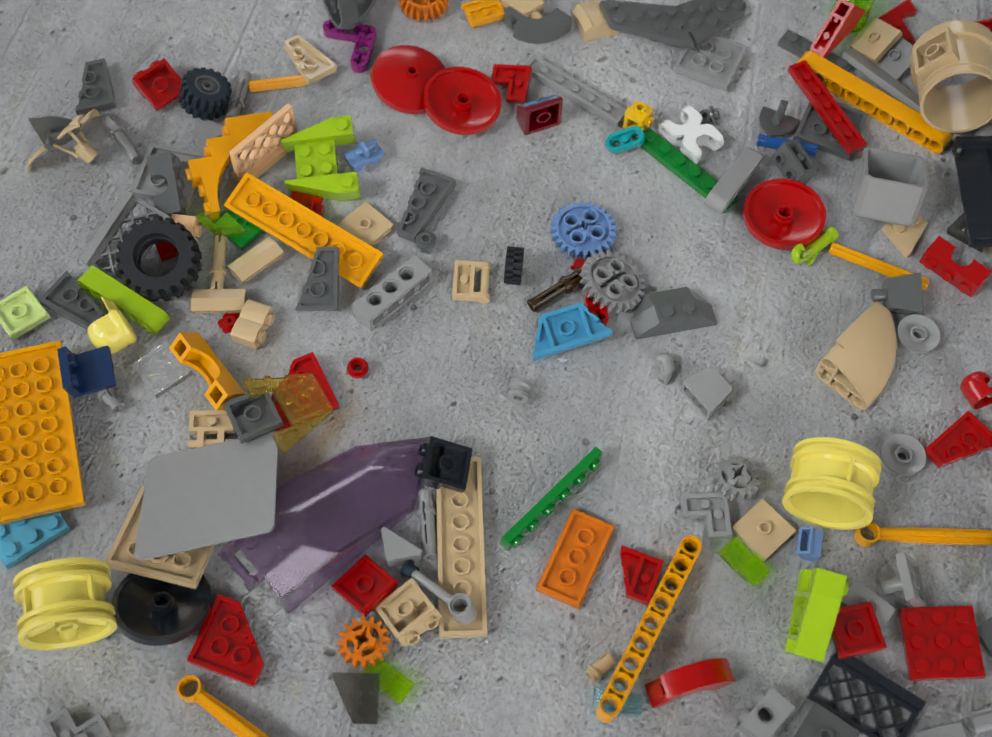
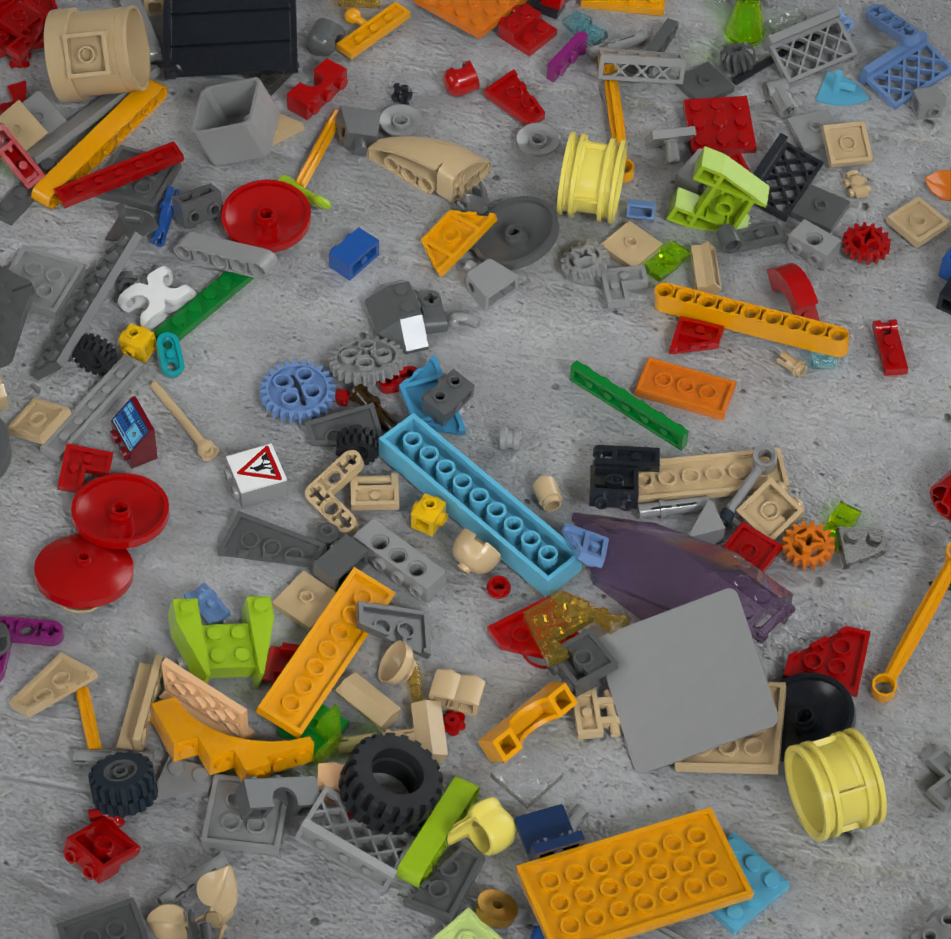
camera: 95 degrees left, 10 degrees down
(38, 324) = (496, 908): none -> pearl gold piece
(269, 297) = (415, 684): none -> clear yellow animal
(284, 282) = (396, 663): none -> tan piece
(303, 118) = (138, 714): none -> tan fence
(372, 430) = (586, 545): none -> medium blue wing
(389, 348) = (474, 554): none -> tan cylinder
(392, 245) = (339, 561): none -> dark grey brick
(436, 316) = (428, 514): none -> yellow brick
(439, 356) = (480, 504): none -> medium azure brick
(453, 415) = (547, 493): none -> tan brick
(467, 242) = (328, 490): none -> tan beam
(478, 484) = (645, 458): none -> black plate
(493, 195) = (256, 476): none -> piece
(526, 163) = (206, 448): none -> tan piece
(540, 266) = (325, 429): none -> dark grey wing
(560, 336) = (447, 397): none -> dark grey brick
(562, 55) = (38, 421): none -> tan plate
(624, 87) = (95, 354): none -> black tyre
(669, 341) = (432, 312): none -> dark grey piece
(672, 79) = (86, 305): none -> dark grey plate
(730, 597) = (705, 268): none -> tan piece
(744, 282) = (353, 253): none -> blue brick
(763, 364) = (454, 237): none -> light orange wing
(768, 416) = (522, 233): none -> dark grey dish
(775, 650) = (749, 237): none -> dark grey plate
(807, 386) = (475, 202): none -> dark grey piece
(955, 337) = (401, 94): none -> black plate

